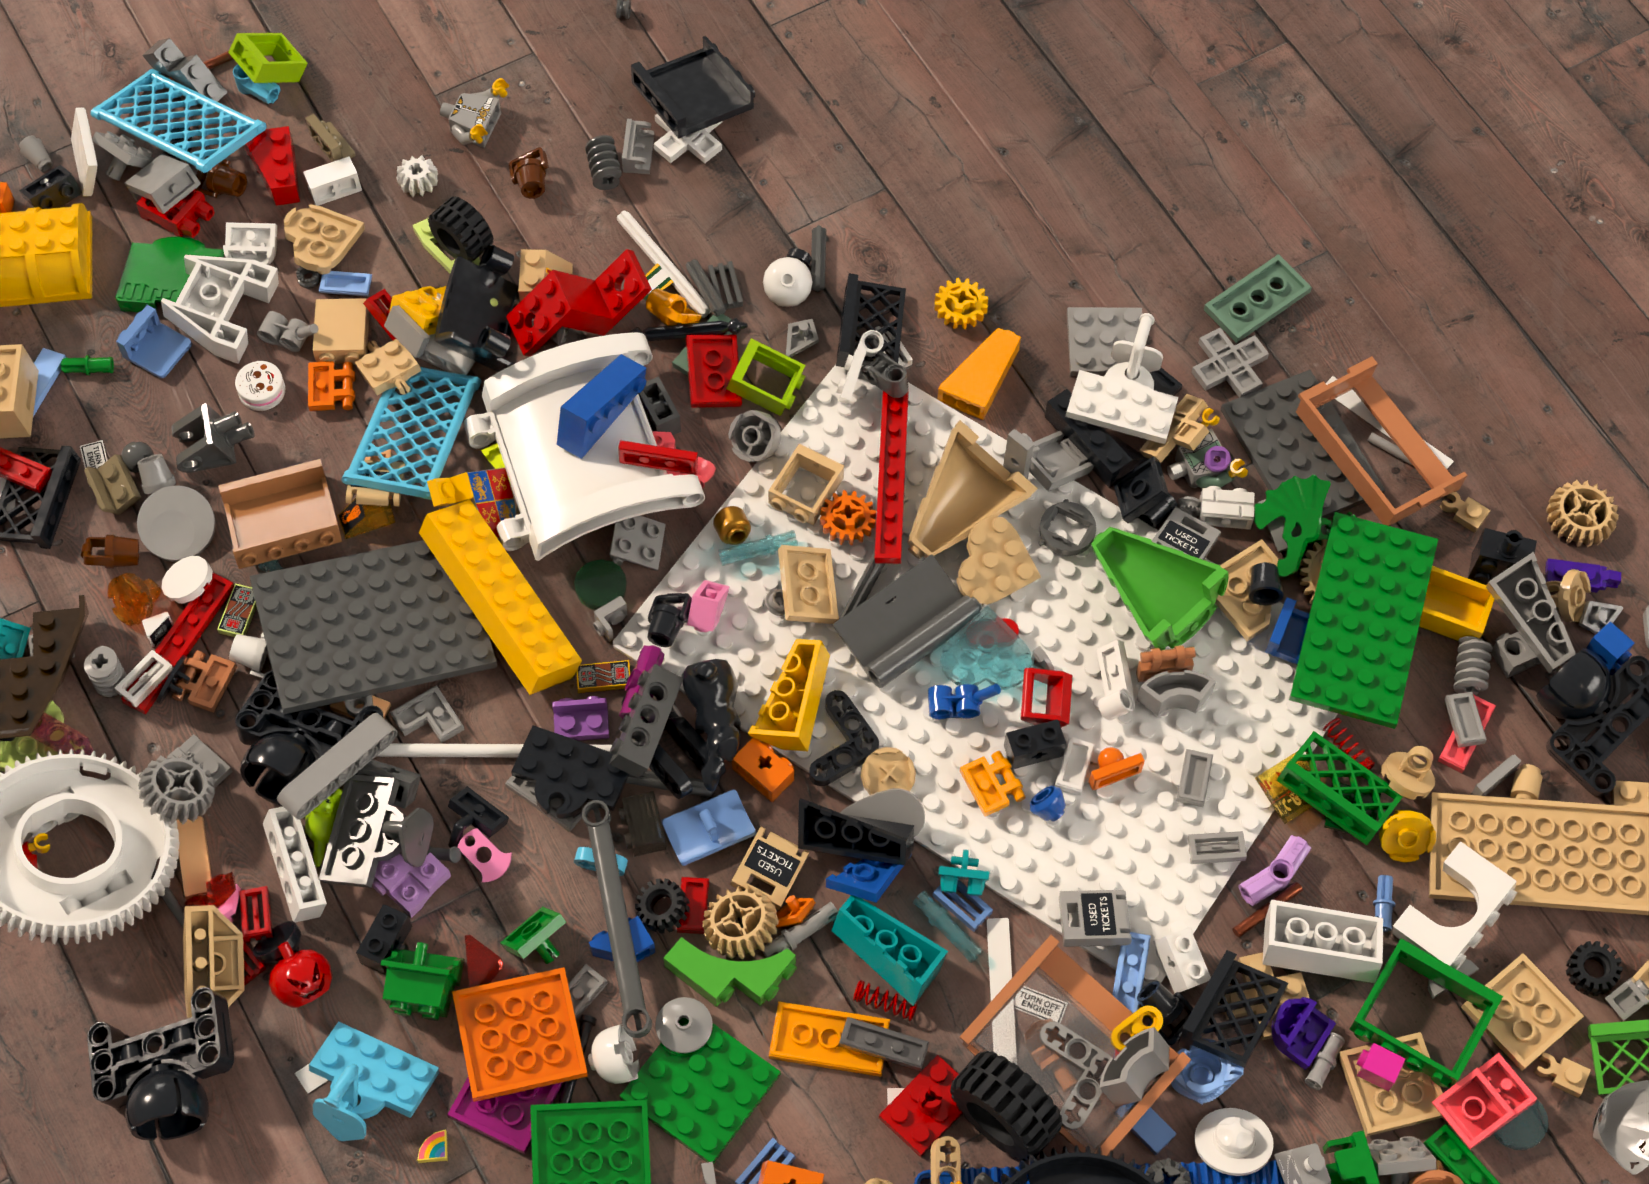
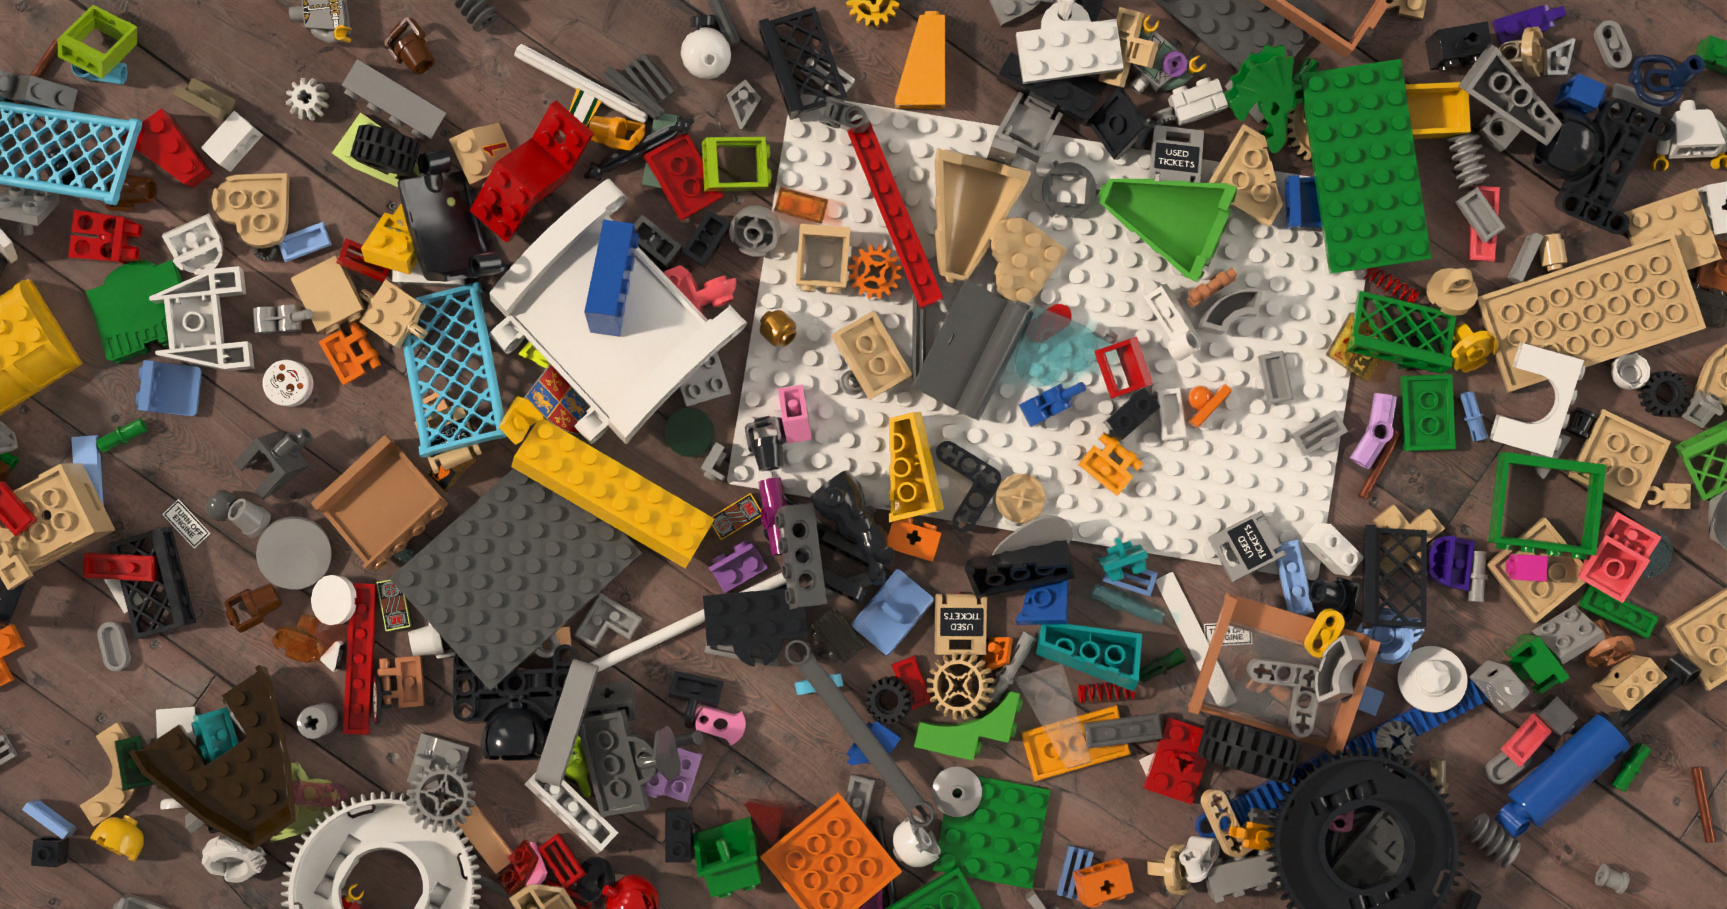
camera: 20 degrees left, 25 degrees up
(113, 485) = (216, 543): dark tan bracket -> none
(147, 681) = (342, 707): white tile -> none
(163, 182) = (80, 224): light grey panel -> none
(407, 331) = (393, 275): light grey tile -> none
(484, 192) = (393, 99): none -> light grey wedge
(534, 935) = (799, 775): green tile -> none
(658, 457) = (689, 308): red tile -> none
(705, 426) = (706, 239): none -> black brick
(769, 544) = (810, 337): clear light blue pin -> none
(808, 435) = (801, 205): none -> clear orange tile
(825, 990) = (1055, 709): none -> clear wing
(854, 363) = (811, 119): white plate -> none
(954, 1000) = (1161, 665): none -> dark green axle
(1048, 803) = (1165, 462): blue cone -> none
(1265, 584) = (1267, 172): black piece -> none
(1323, 941) = (1440, 479): white brick -> none
(1338, 875) = (1427, 412): none -> green plate
(1495, 958) = (1581, 423): none -> black bush
(1565, 928) = (1630, 371): none -> white hair

